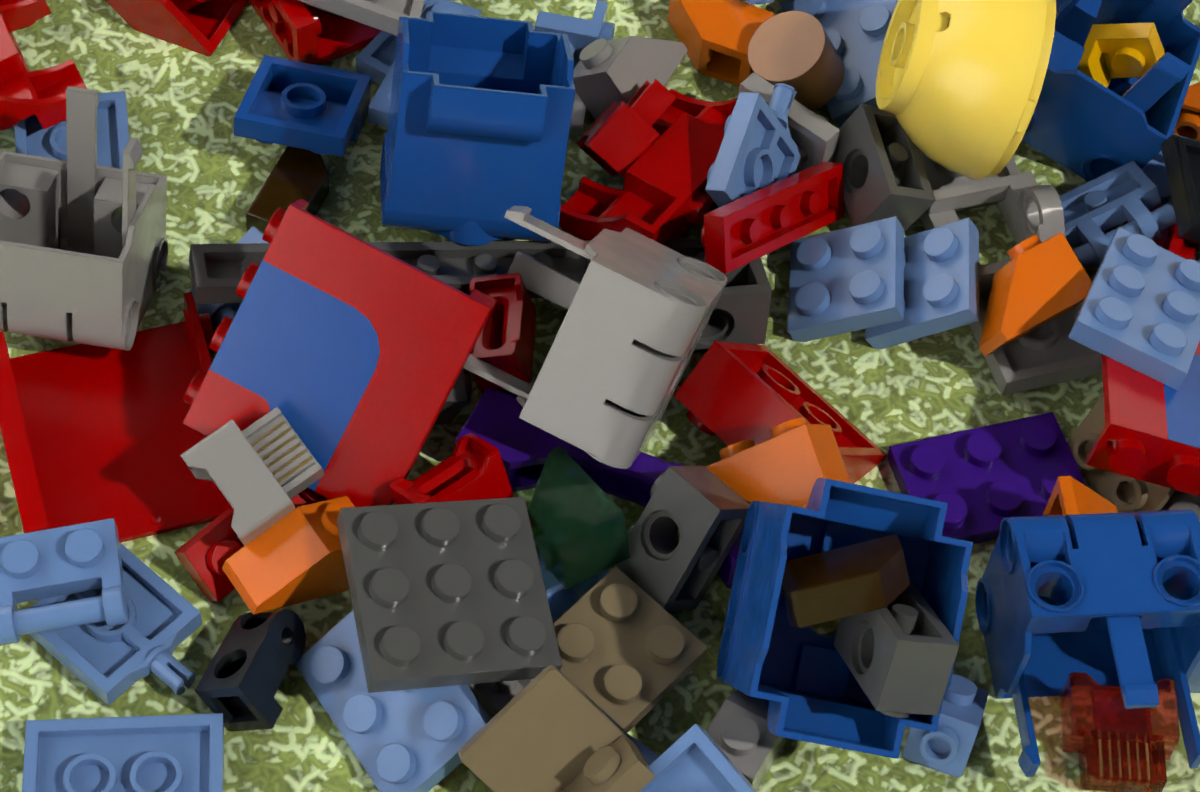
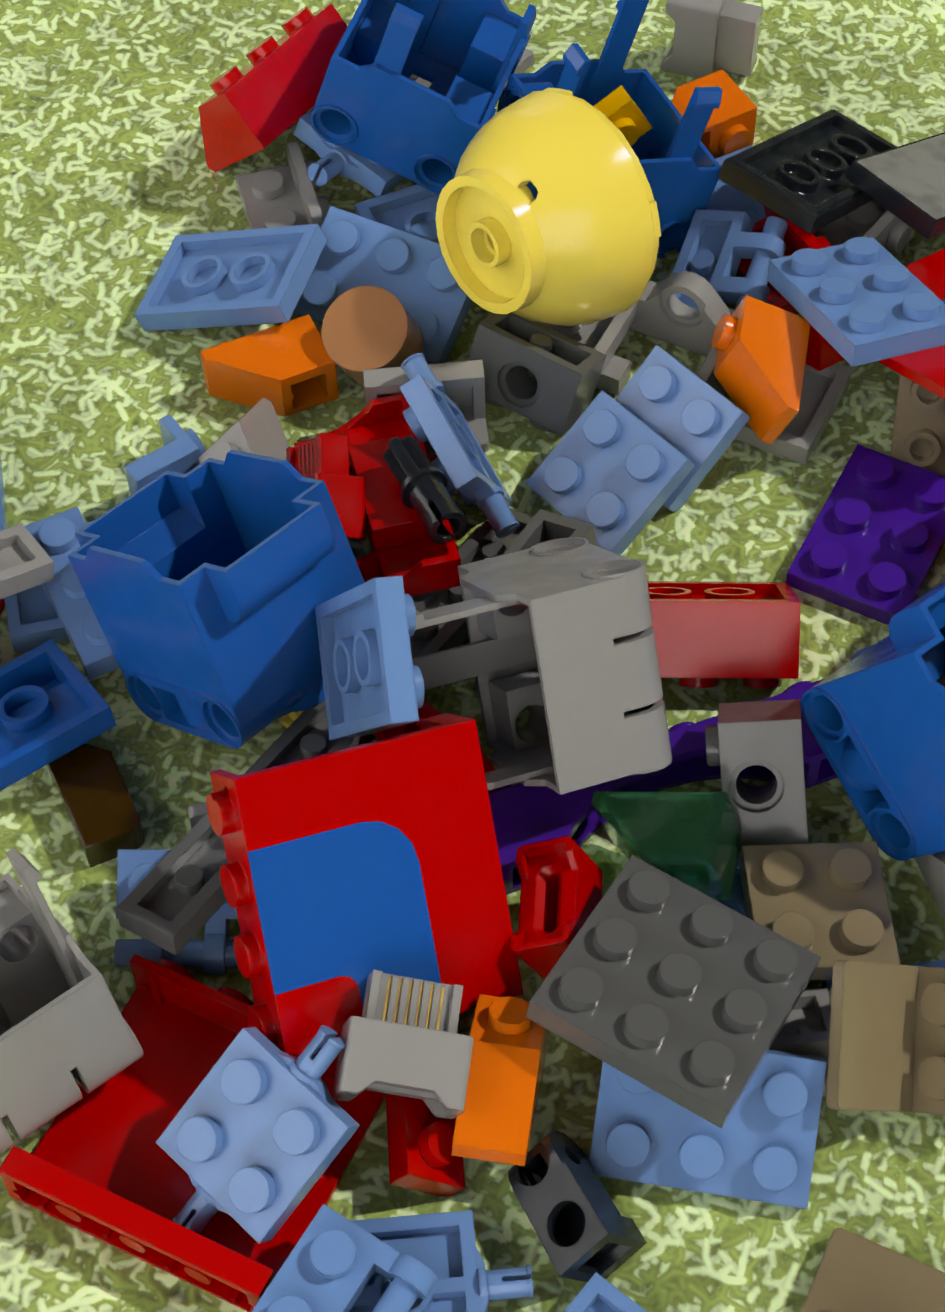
camera: 40 degrees left, 0 degrees up
(126, 445) = (258, 1133): none -> medium blue plate
(462, 239) = (369, 659): none -> medium blue plate
(681, 171) = (424, 489): none -> black axle
(773, 216) = (518, 471): red plate -> none
(783, 466) = (777, 655): orange slope -> none

